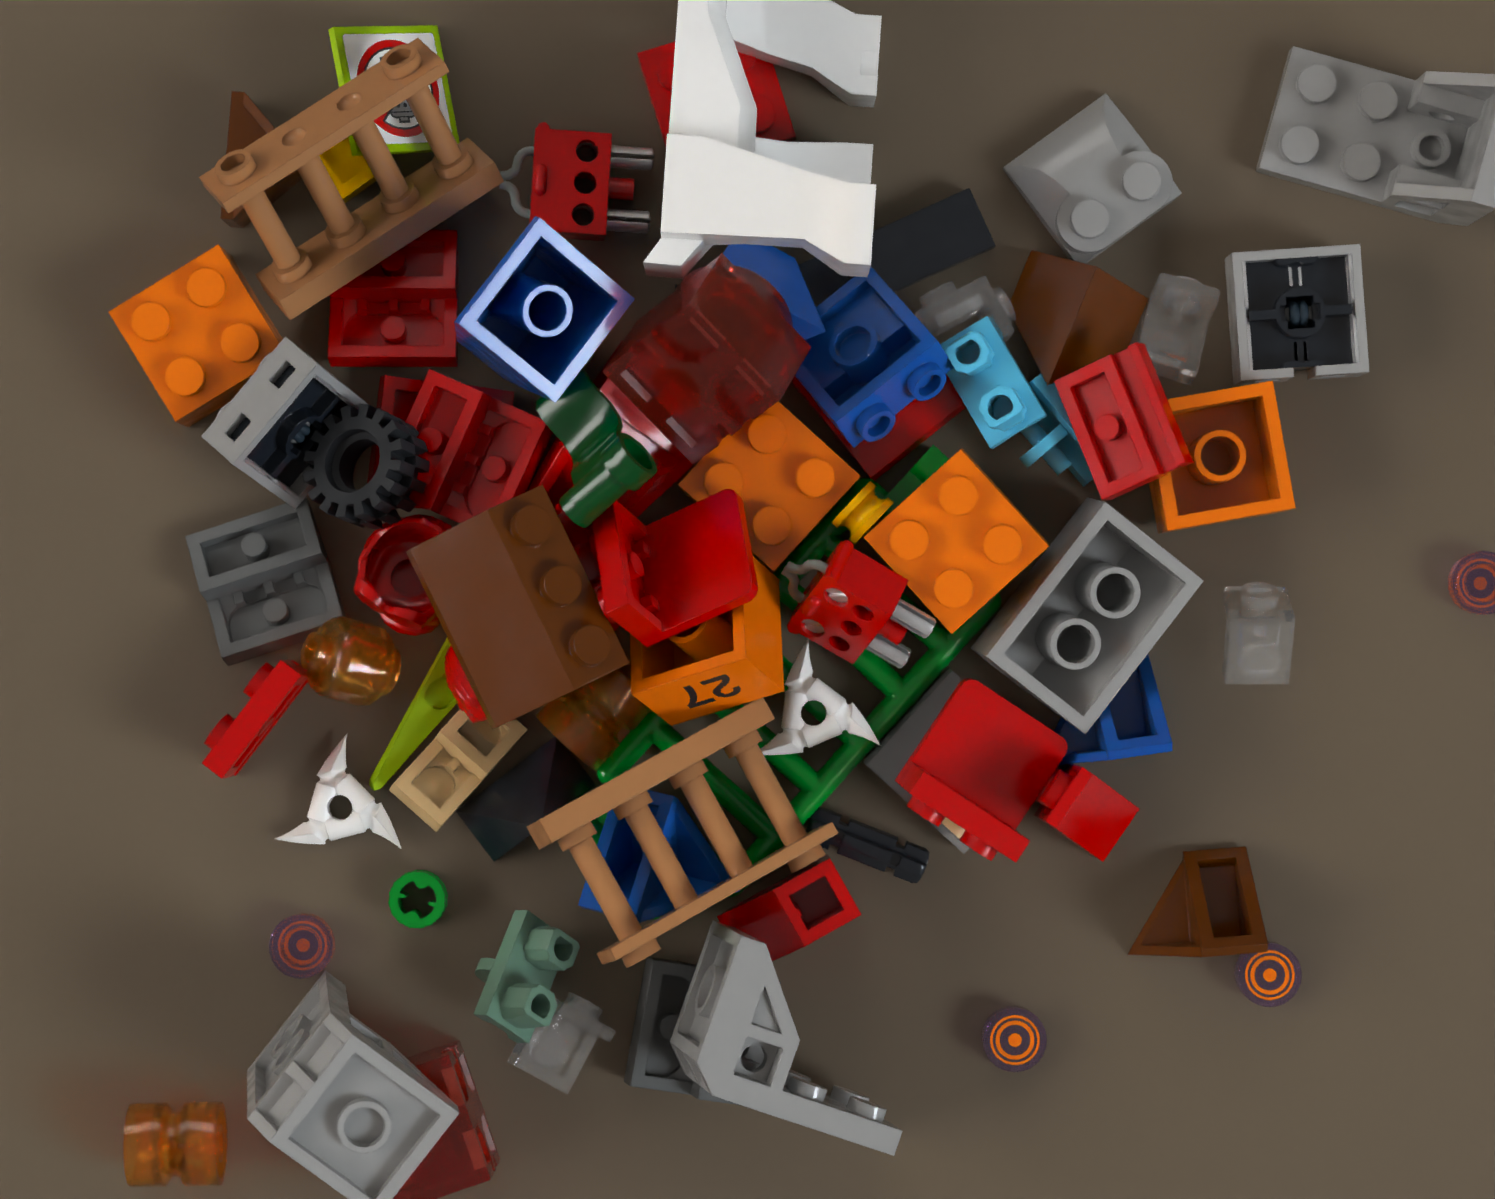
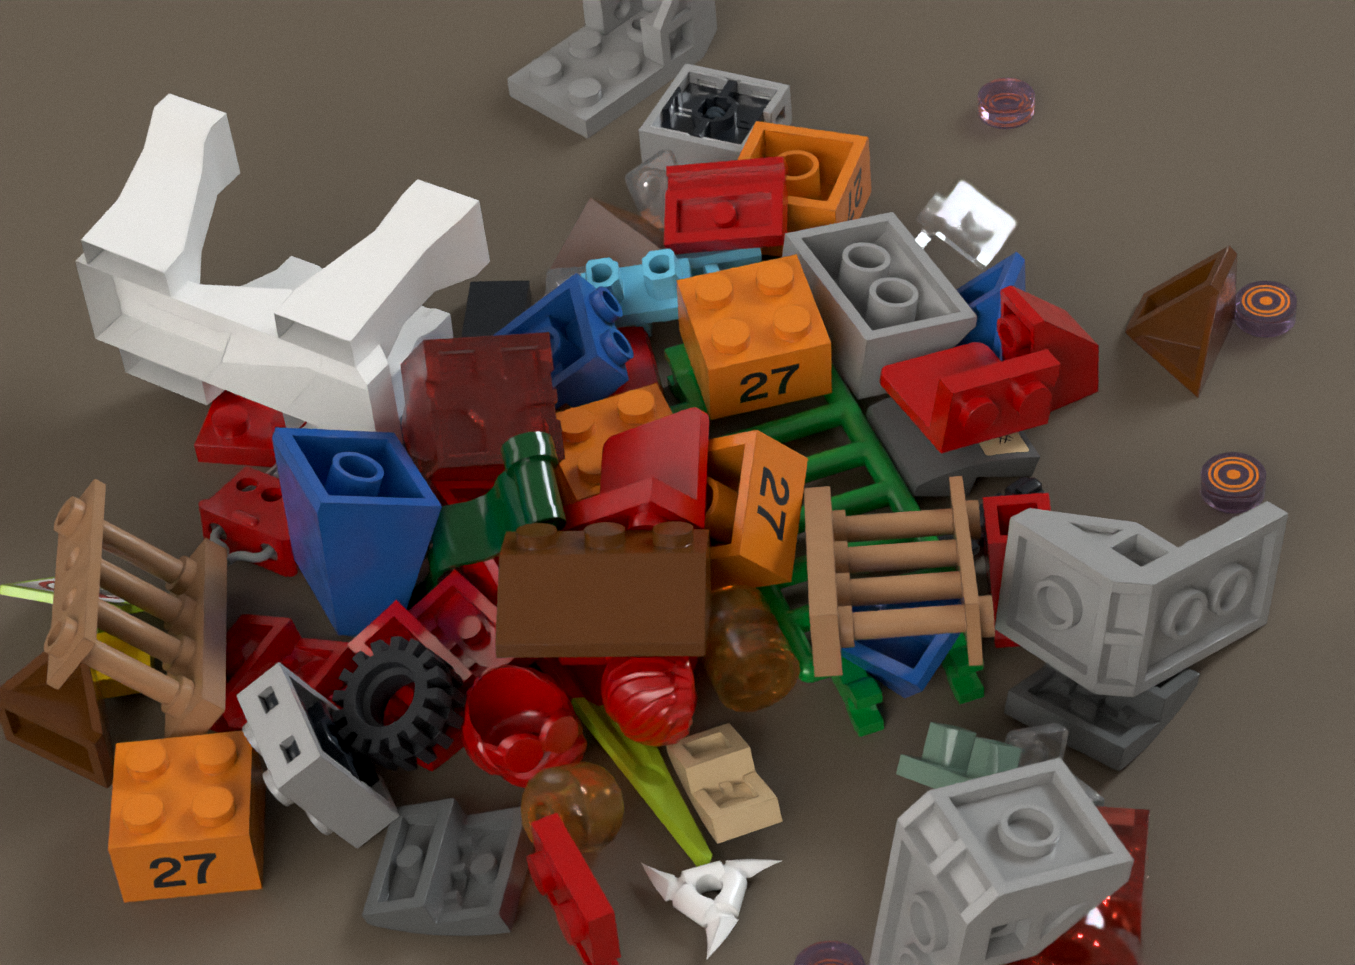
camera: 55 degrees left, 45 degrees down
(414, 917) = (840, 881): green bush -> none
(523, 796) = (796, 751): black slope -> none
(838, 716) = (860, 481): white piece -> none
(855, 607) = (766, 397): red piece -> none
(862, 512) = (689, 392): yellow bush -> none
(1092, 180) = (528, 212): light grey slope -> none

